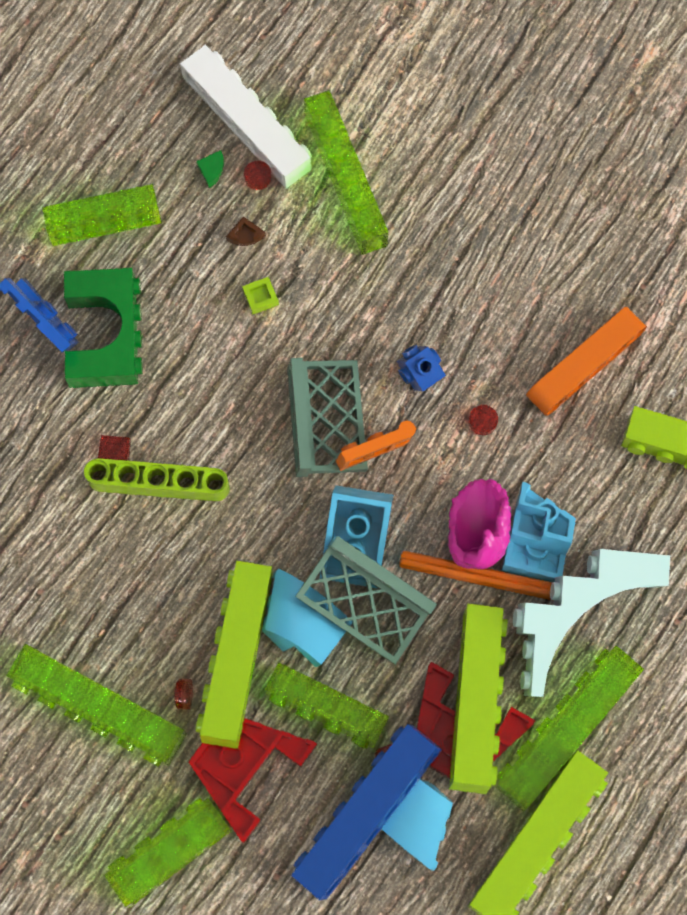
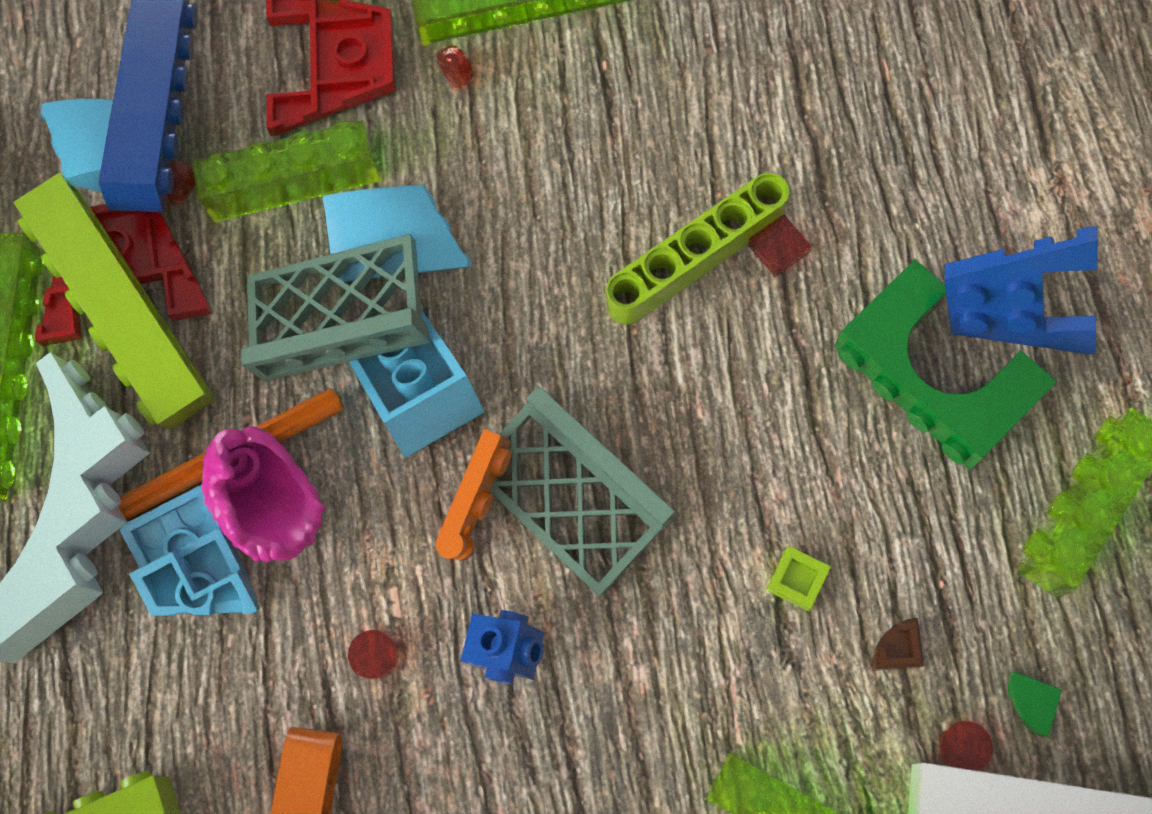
camera: 145 degrees right, 0 degrees up
(236, 655) = (431, 138): lime brick -> none

